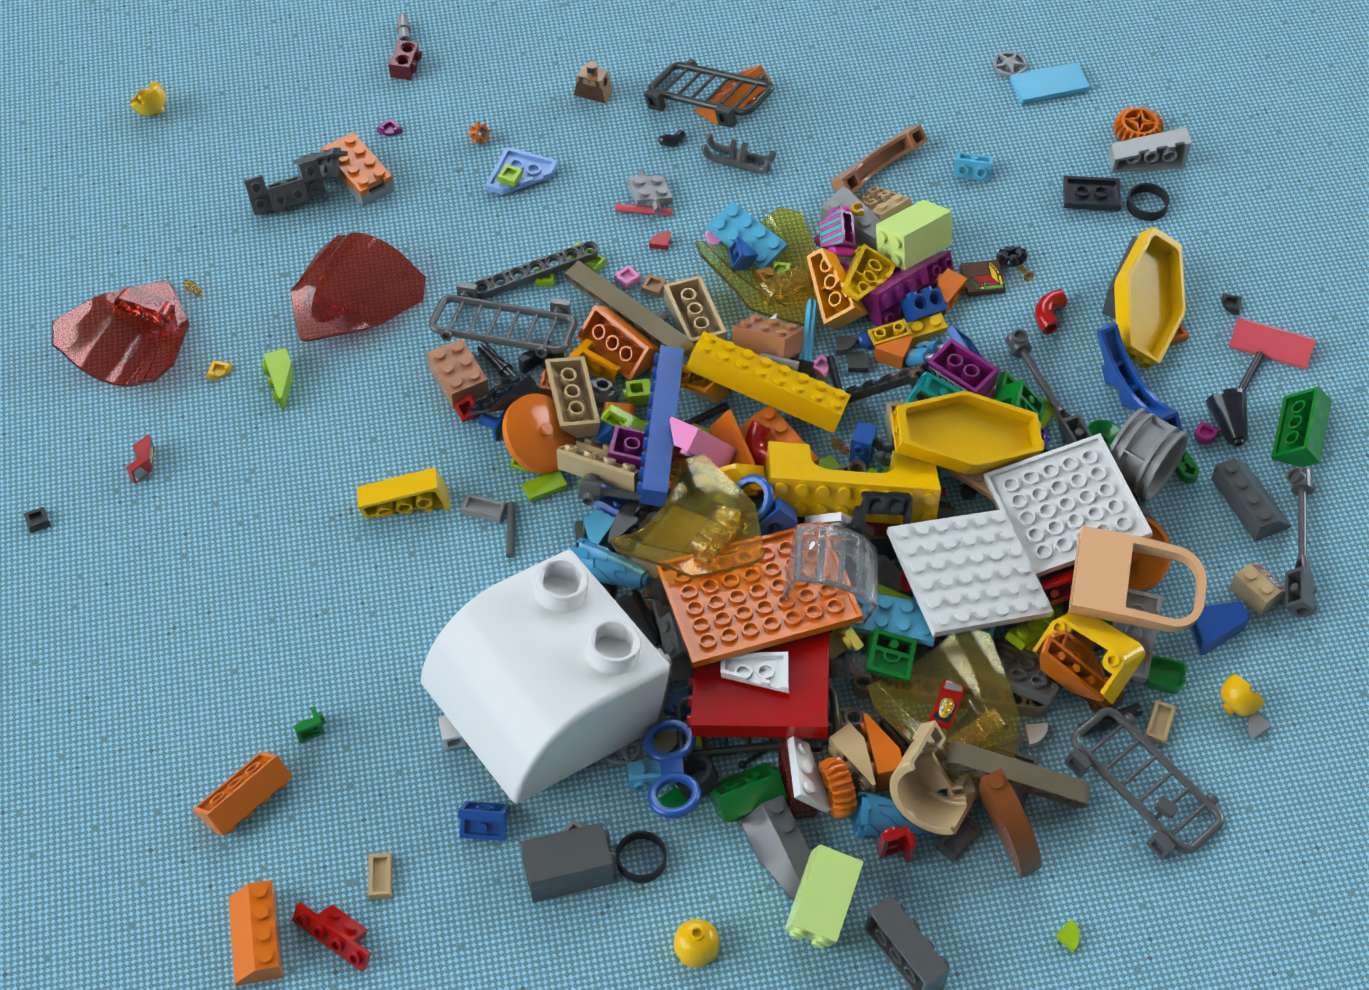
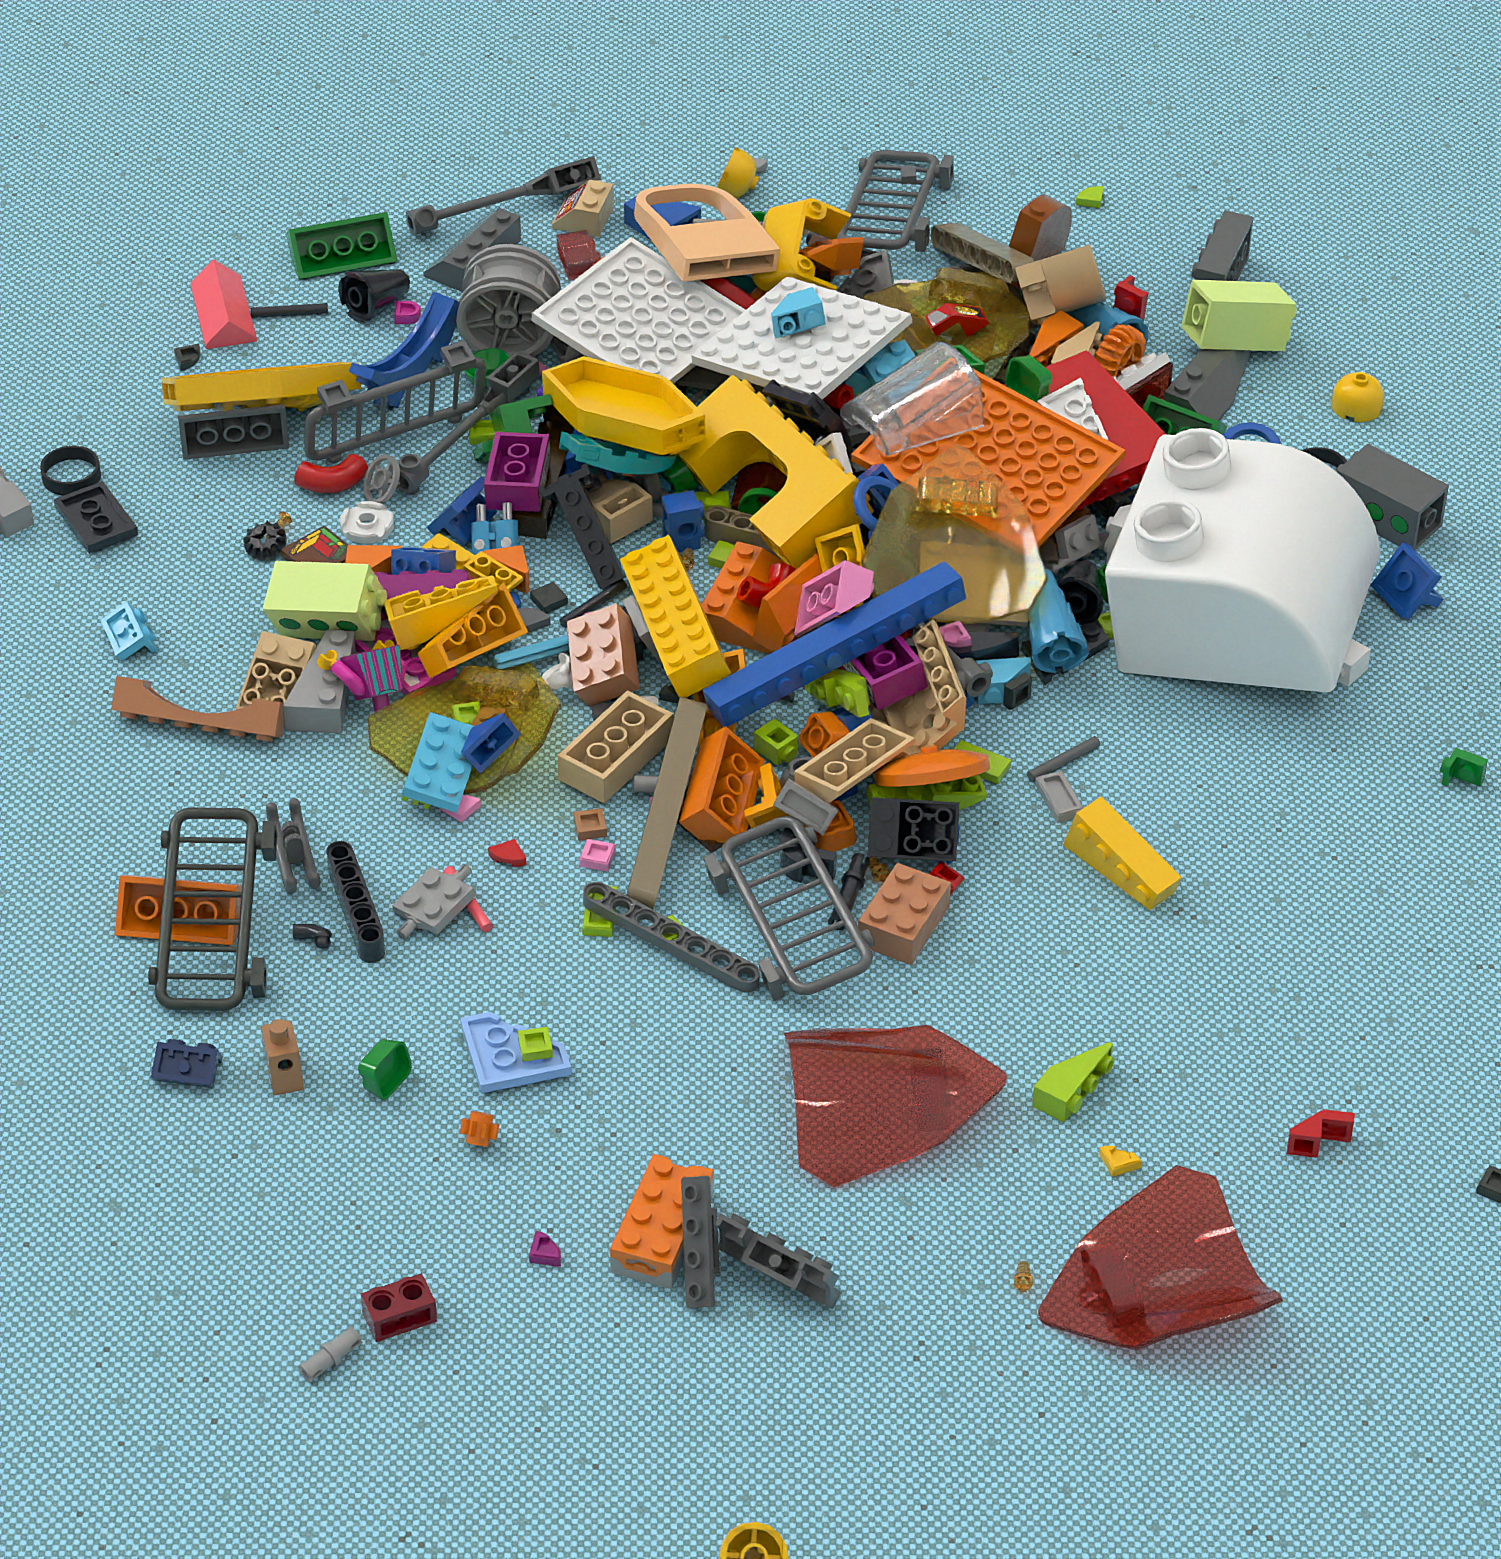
camera: 125 degrees left, 10 degrees down
(550, 116) = (385, 1068): none -> green piece
(562, 353) = (805, 806): none -> light grey tile
(625, 56) = (186, 1064): none -> dark blue bracket
(635, 510) = (955, 635): none -> bright pink tile
(677, 160) = (355, 902): none -> black beam
(809, 655) = (1028, 377): none -> green piece
(983, 565) = (798, 313): none -> medium azure slope
(993, 321) = (367, 533): none -> white tile
(1027, 327) = (382, 479): none -> light grey wheel
(1070, 360) = (337, 397): none -> dark grey bar
(1210, 552) = (576, 252): none -> clear red brick

